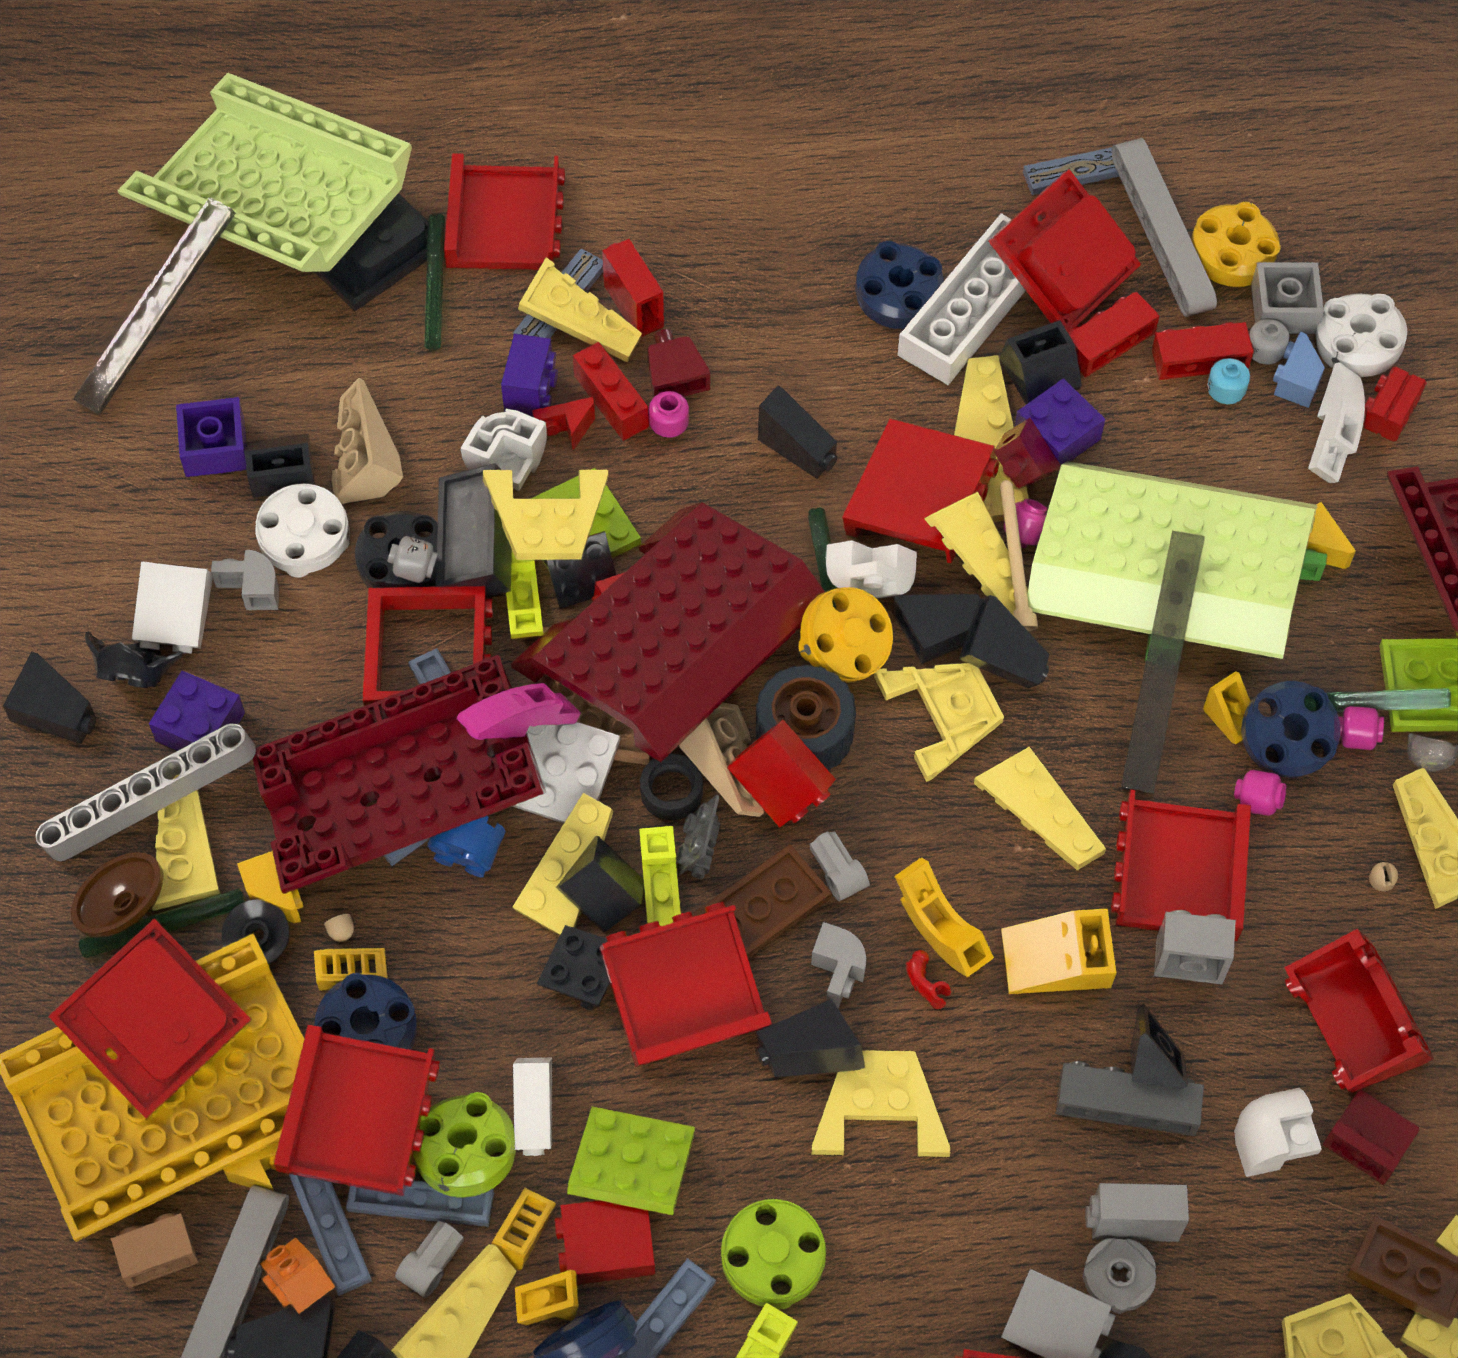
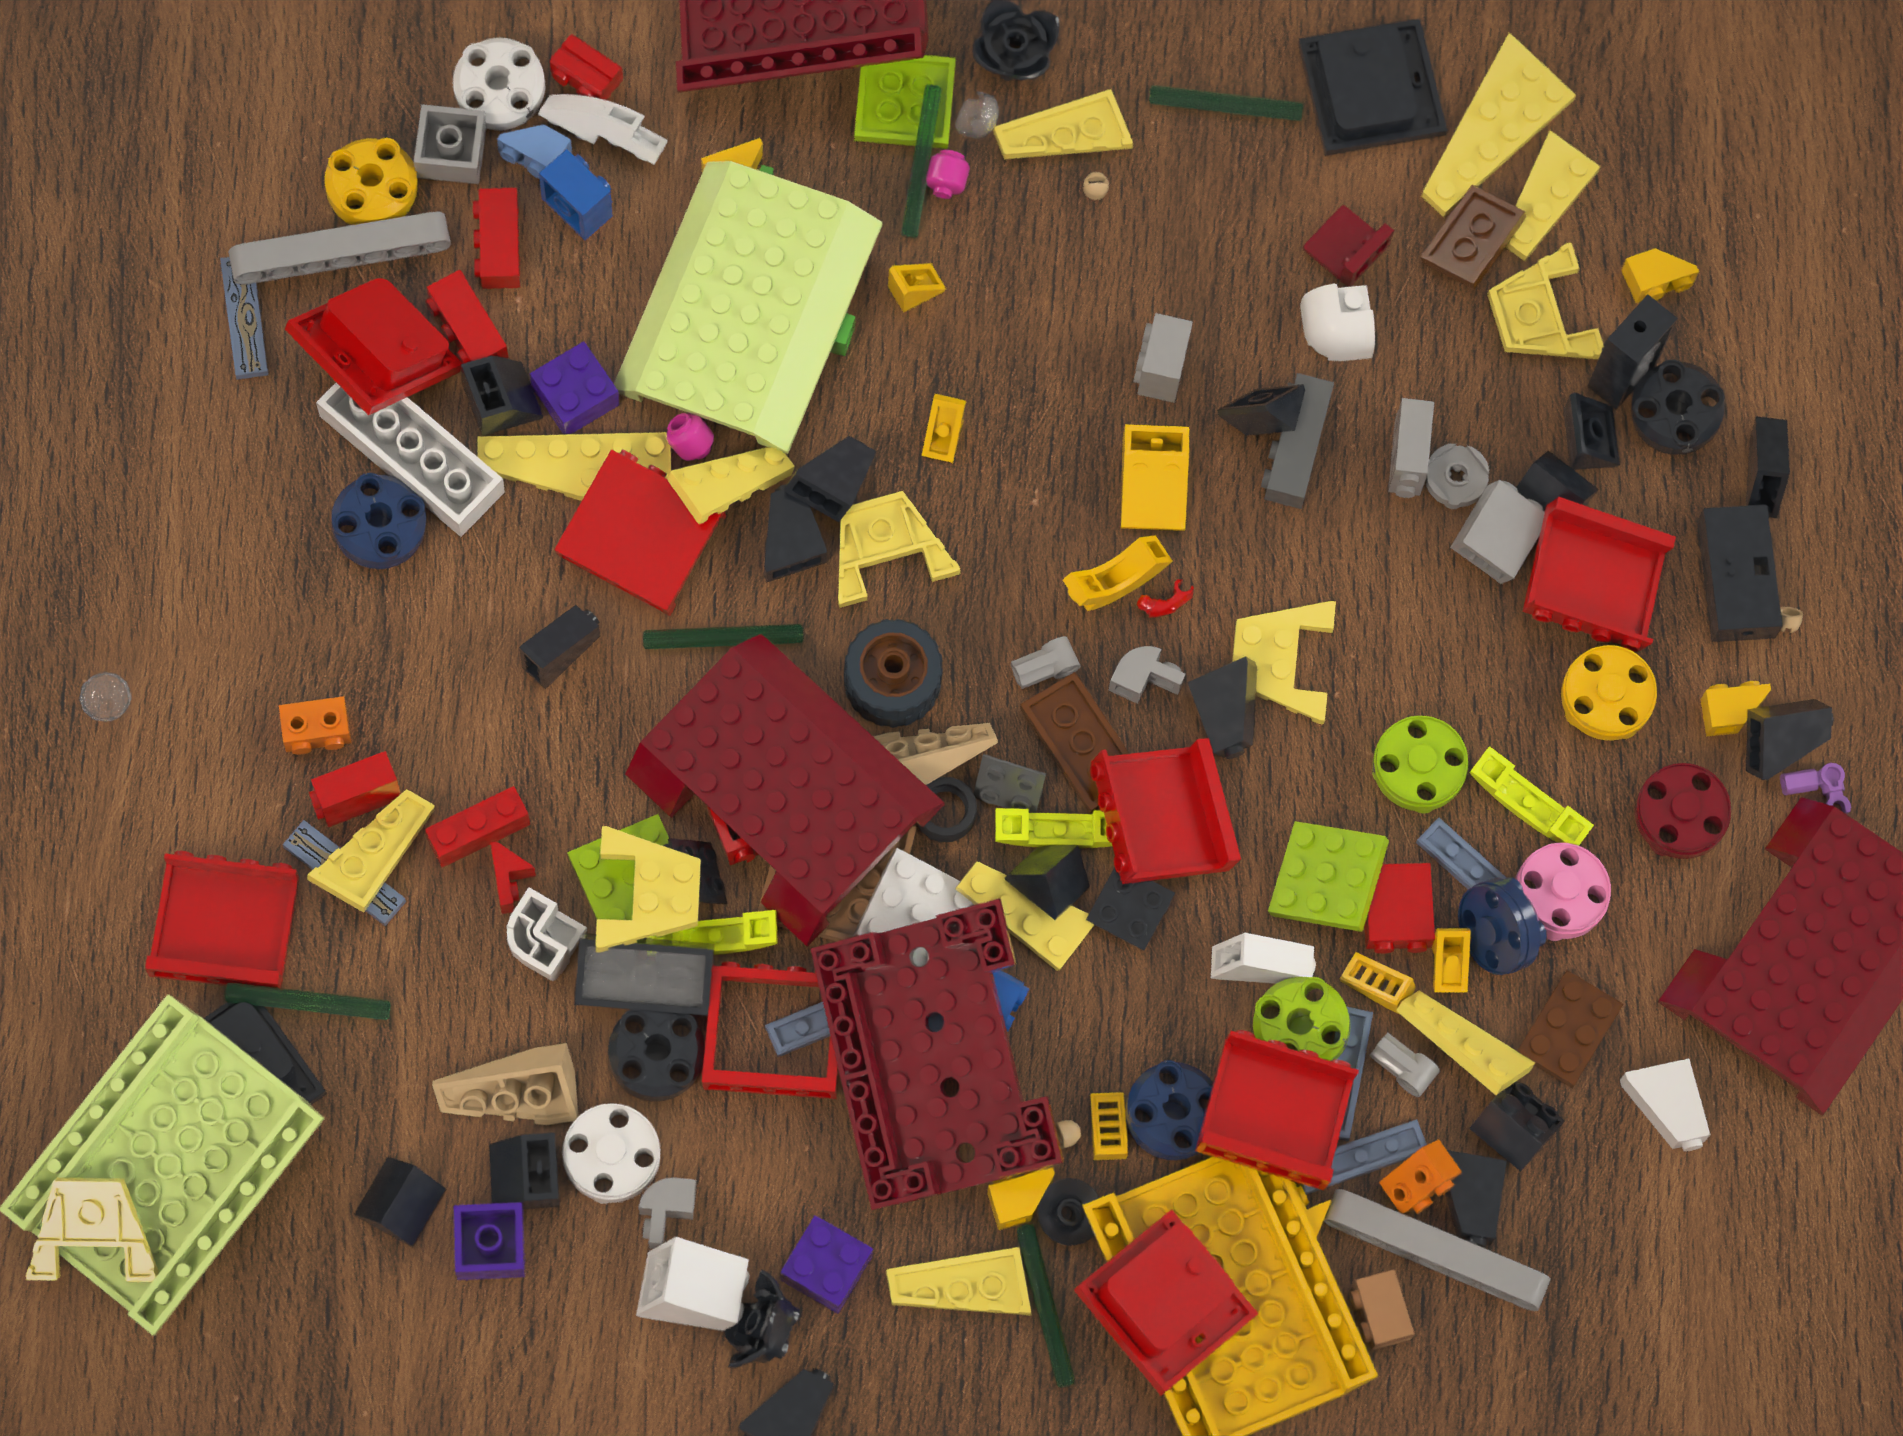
camera: 90 degrees left, 10 degrees up
(117, 895) = (1006, 1354): reddish brown dish -> none
(129, 792) = (914, 1293): light grey beam -> none
(154, 306) = (320, 1293): clear smoke tile -> none
(219, 134) = (91, 1215): none -> light yellow wing
(252, 373) = (400, 1200): none -> black slope
(412, 559) = (682, 1030): light grey head -> none
(515, 710) = (892, 927): dark pink slope -> none
(529, 374) = (459, 905): dark purple brick -> none
(669, 414) = (516, 759): dark pink head -> none
(676, 365) = (452, 760): dark red torso -> none
(696, 259) = (315, 725): none -> orange brick
(701, 102) = (105, 696): none -> clear hair
(782, 774) = (959, 697): red brick -> none
(846, 633) = (806, 621): yellow piece -> none
(878, 570) = (732, 590): white brick -> none
(1023, 612) = (798, 454): tan piece -> none
(1026, 455) = (627, 423): dark red torso -> none
(1042, 806) = (987, 477): light yellow wing -> none
(1078, 749) = (944, 428): none -> yellow slope
(1163, 662) = (875, 330): clear smoke tile -> none
(1180, 862) = (1073, 356): red panel -> none
(1228, 381) = (542, 219): medium azure head -> none
(1258, 401) = (576, 193): none -> blue brick
(1261, 791) = (1005, 274): dark pink head -> none
(1268, 341) = (499, 170): light grey head -> none
(1291, 729) = (947, 234): dark blue piece -> none
(1358, 1012) = (1237, 231): red windscreen -> none

